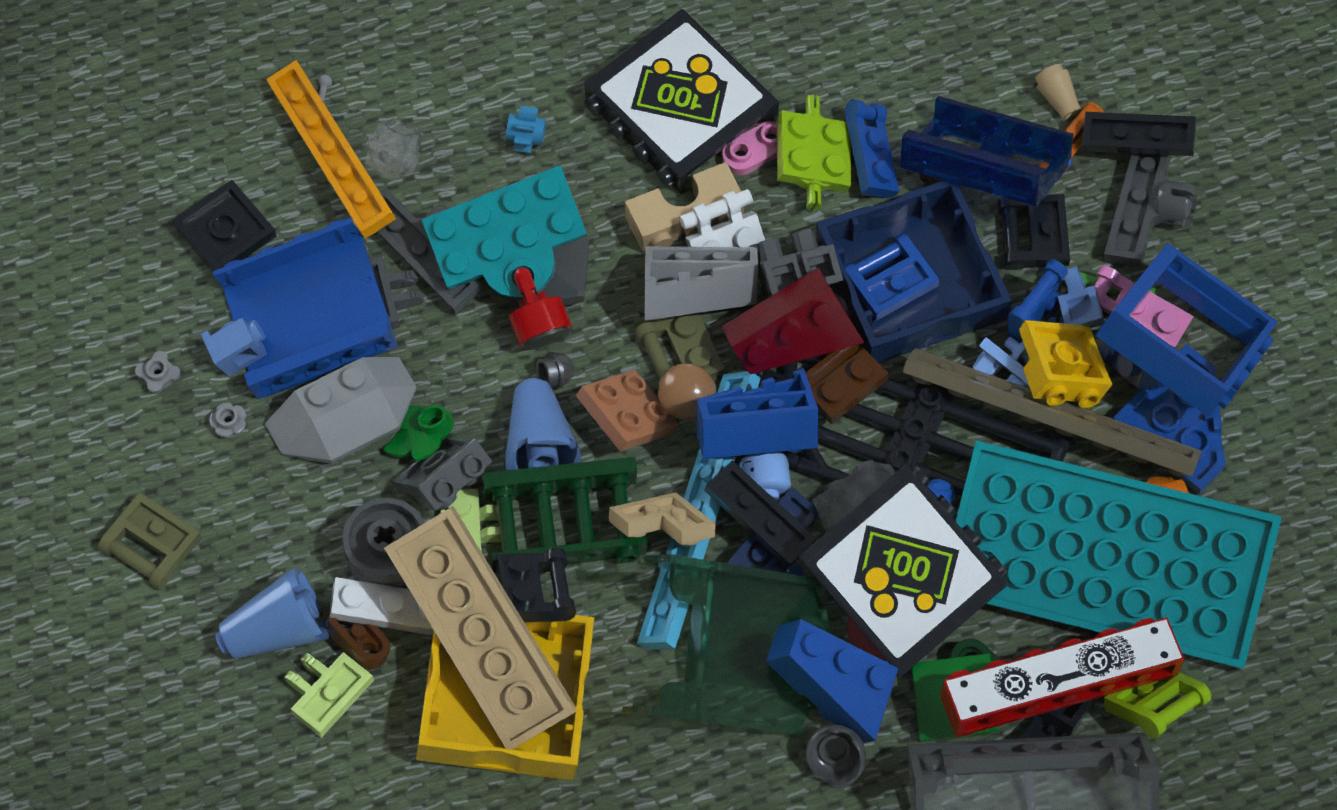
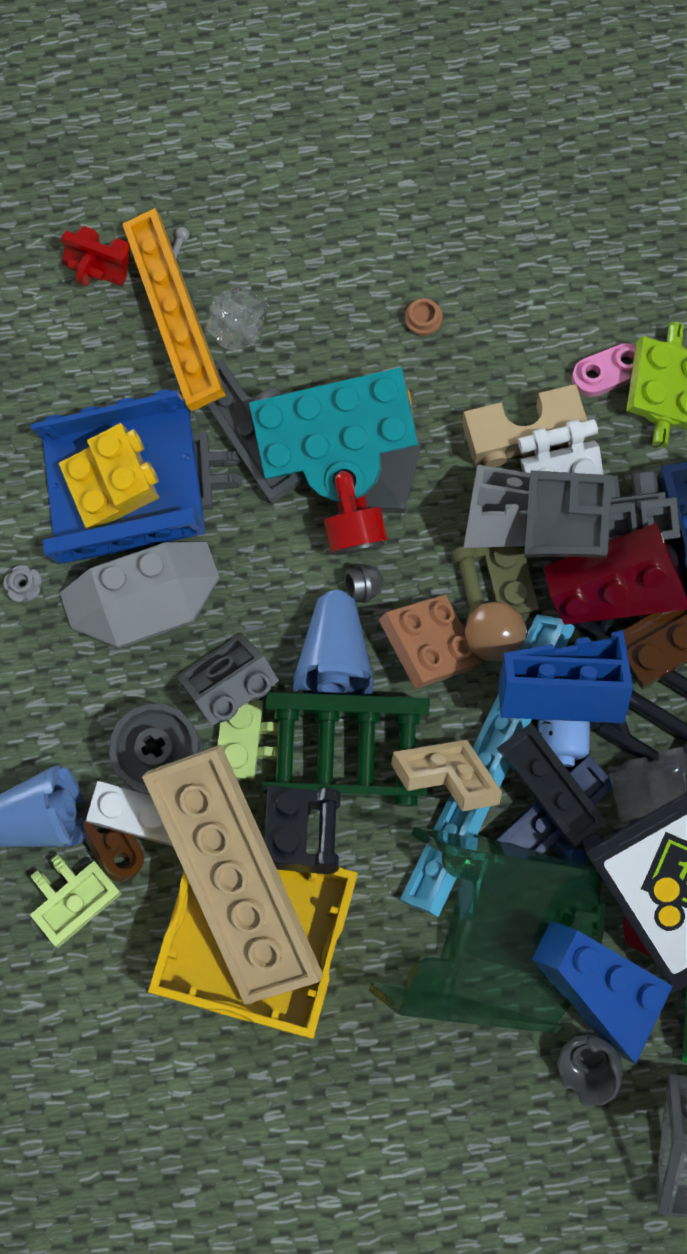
camera: 15 degrees right, 10 degrees up
(224, 227) = (54, 375): black plate -> none
(235, 345) = (41, 506): medium blue brick -> none
(245, 114) = (95, 260): none -> red hips
(297, 308) = (110, 477): none -> yellow plate
(421, 432) = (211, 631): green plate -> none
(525, 129) = (375, 316): dark azure gear -> none
(572, 124) = (423, 317): none -> nougat plate
(678, 98) = (537, 306): panel -> none
(735, 272) = (568, 515): none -> dark grey plate

